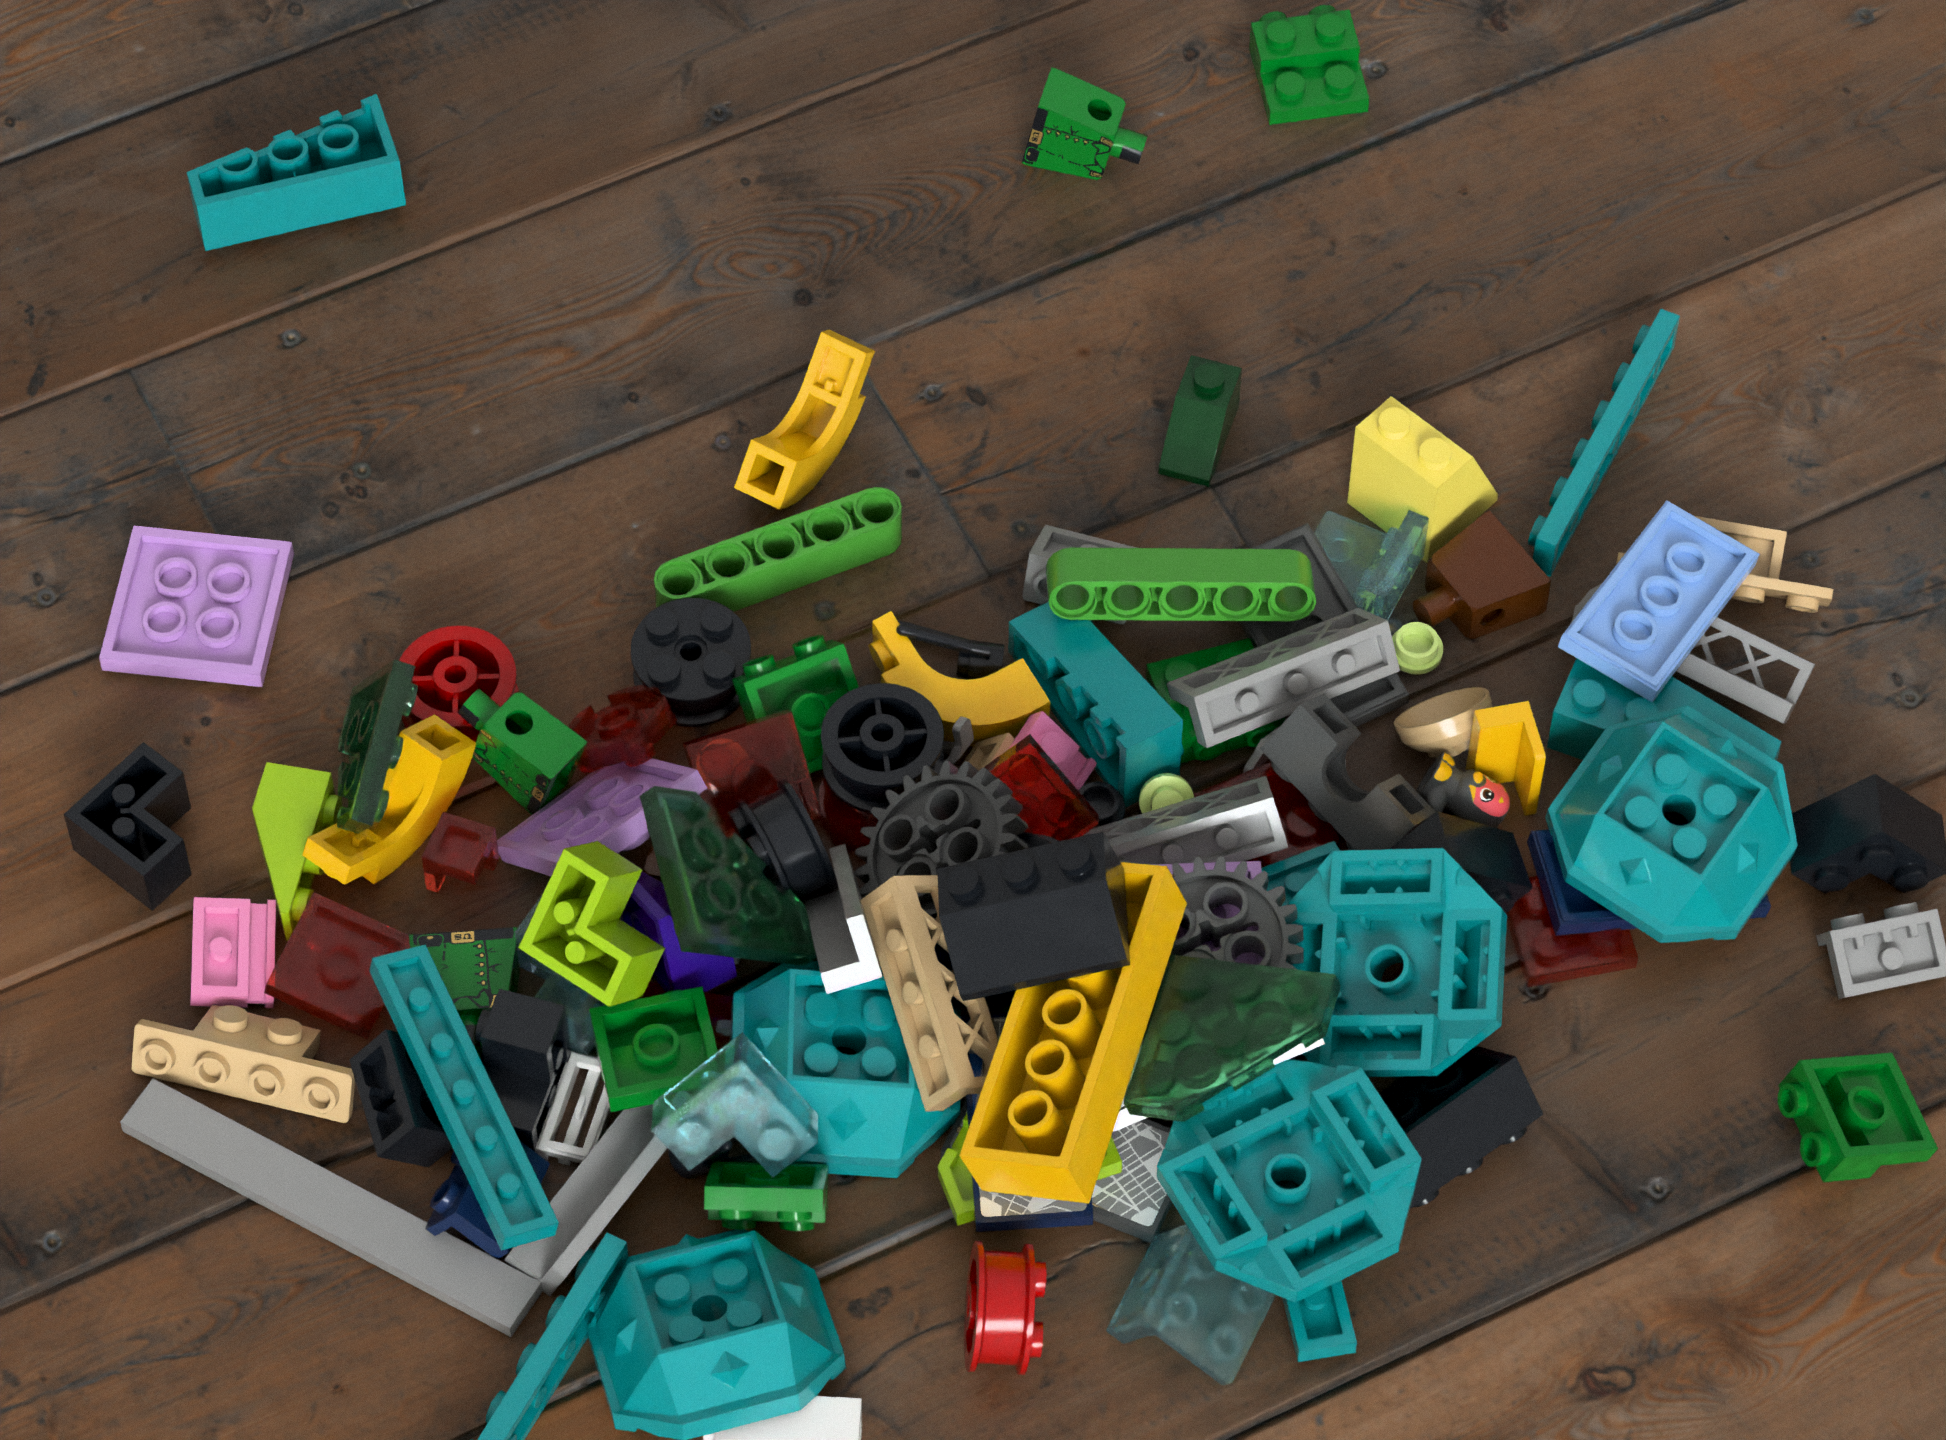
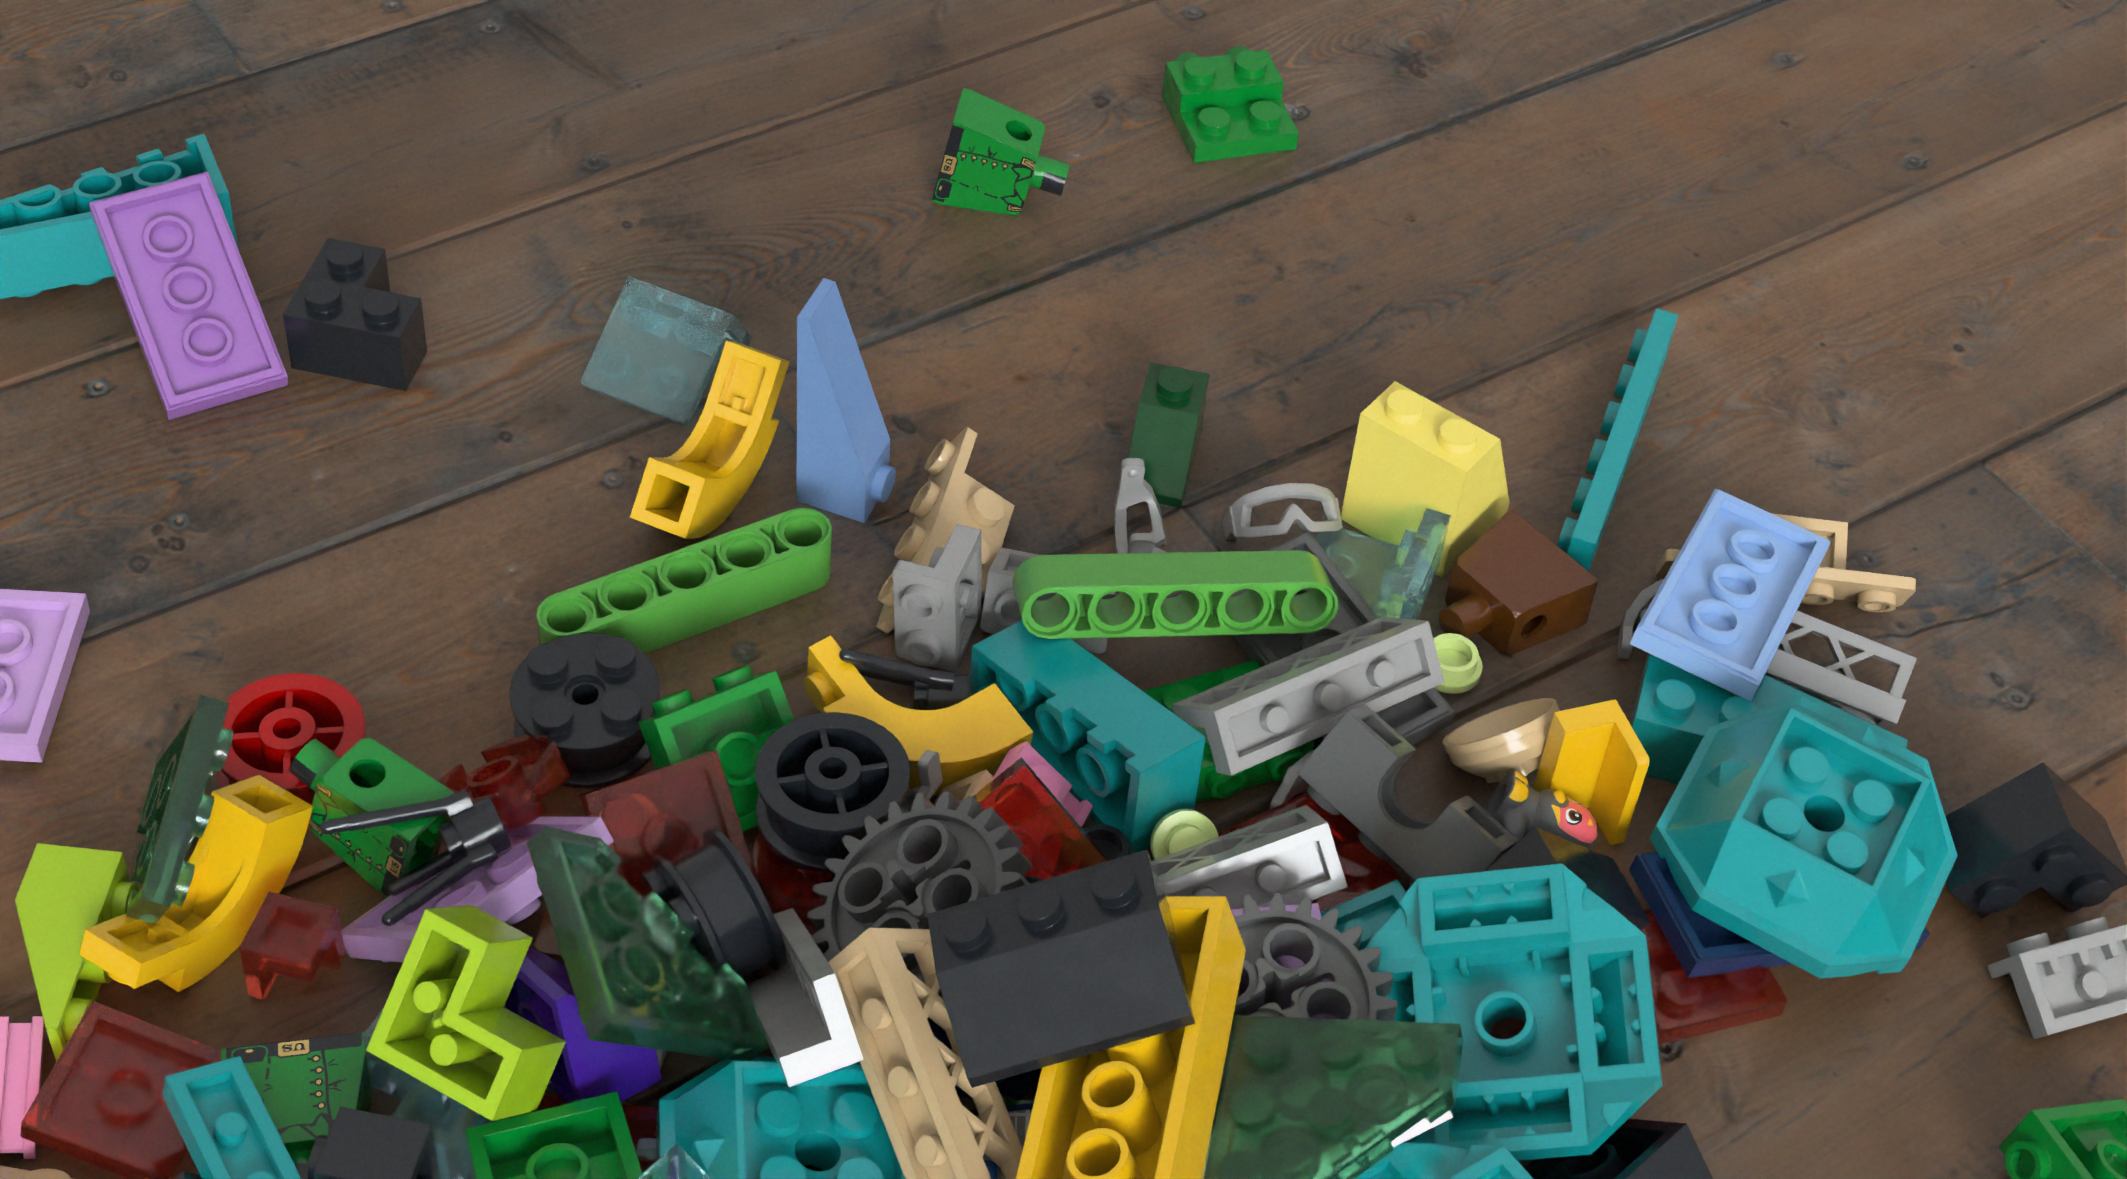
camera: 10 degrees left, 10 degrees down
(366, 259) = (188, 295): none -> medium lavender tile
(501, 286) = (351, 323): none -> black brick
(597, 776) = (470, 836): none -> black plant
(768, 322) = (660, 350): none -> clear light blue bracket
(912, 409) = (839, 422): none -> medium blue wedge
(986, 586) = (939, 603): none -> light grey bracket
(1006, 511) = (939, 505): none -> tan bracket
(1159, 534) = (1133, 490): none -> light grey helmet
(1254, 499) = (1238, 516): none -> light grey helmet

